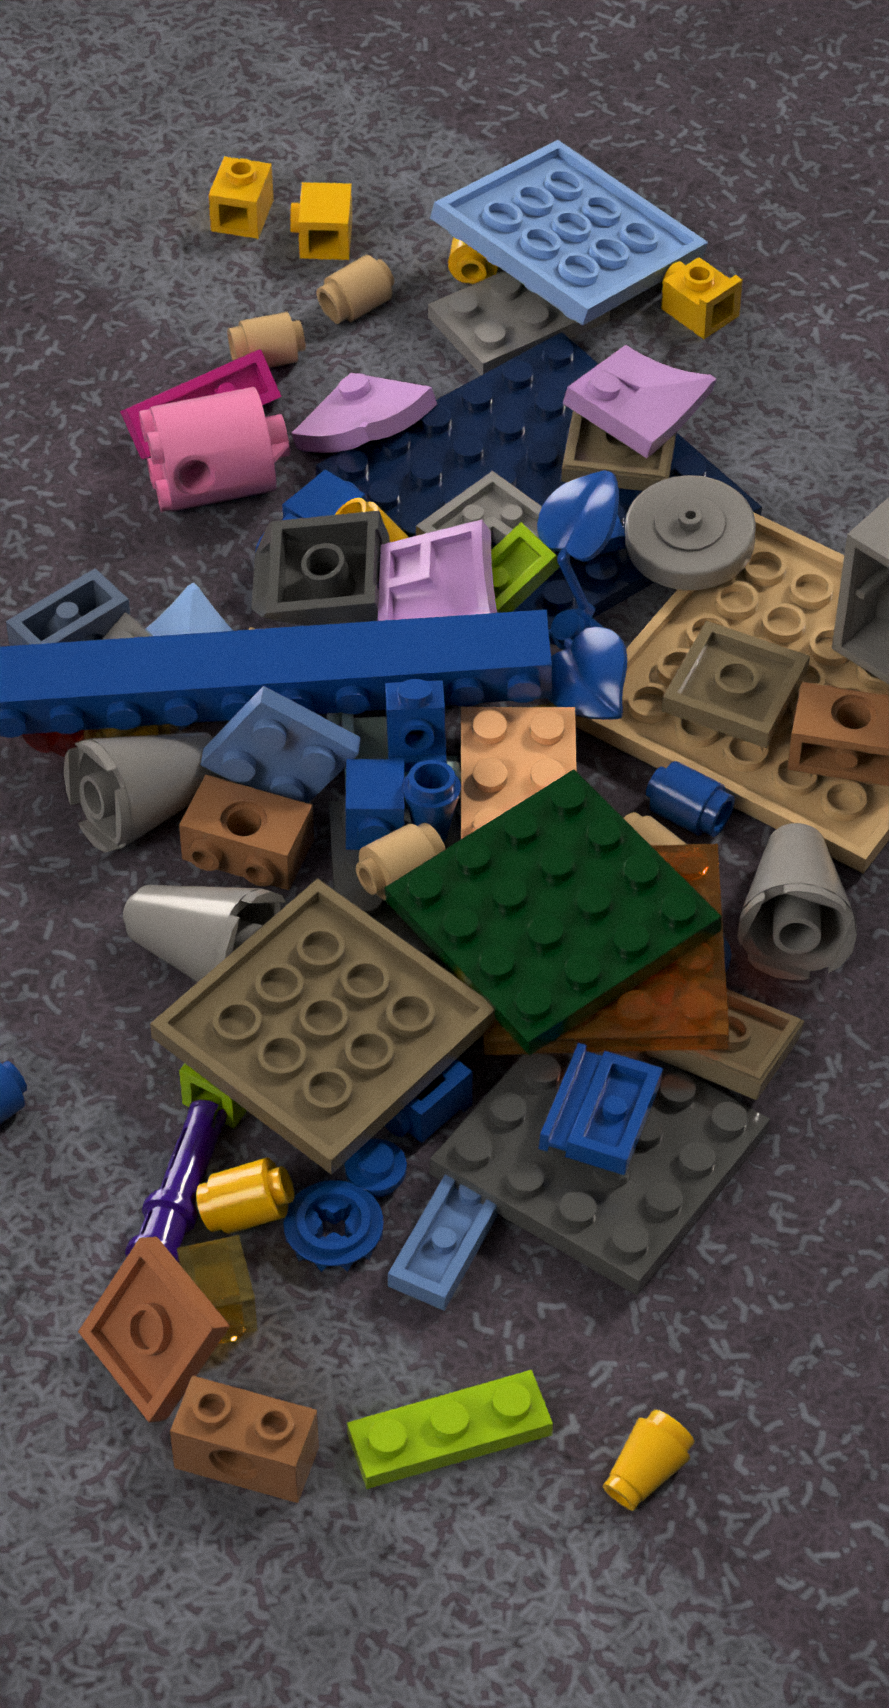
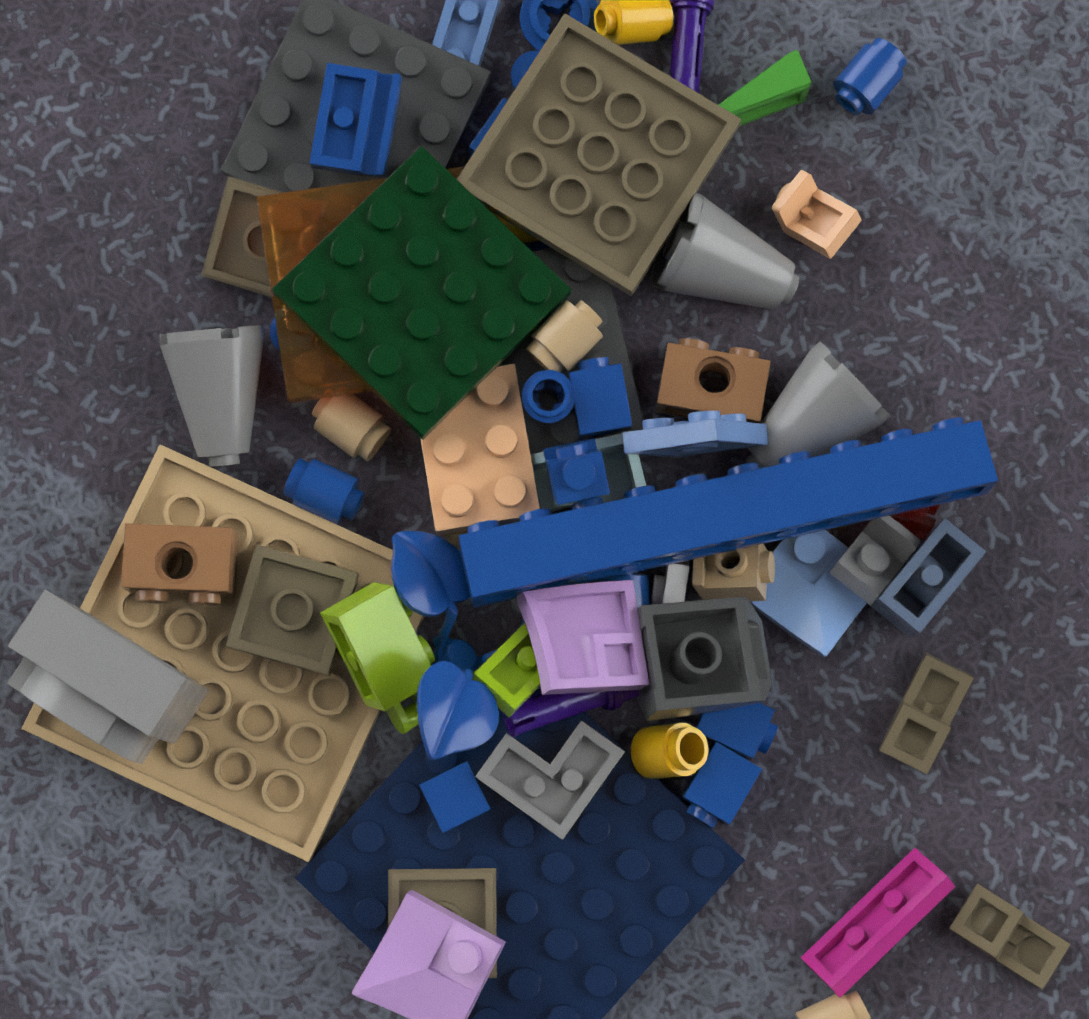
camera: 170 degrees right, 30 degrees up
(74, 387) = (1009, 937): none -> dark tan slope
(85, 971) = (814, 215): none -> light nougat bracket
(109, 544) = (926, 713): none -> dark tan slope
(114, 1097) = (771, 91): none -> bright green slope
(212, 449) = (847, 835): bright pink cylinder -> none
(362, 411) = (709, 930): lavender plate -> none
(653, 627) = (381, 650): none -> lime brick
(690, 532) = (357, 797): light grey wheel -> none

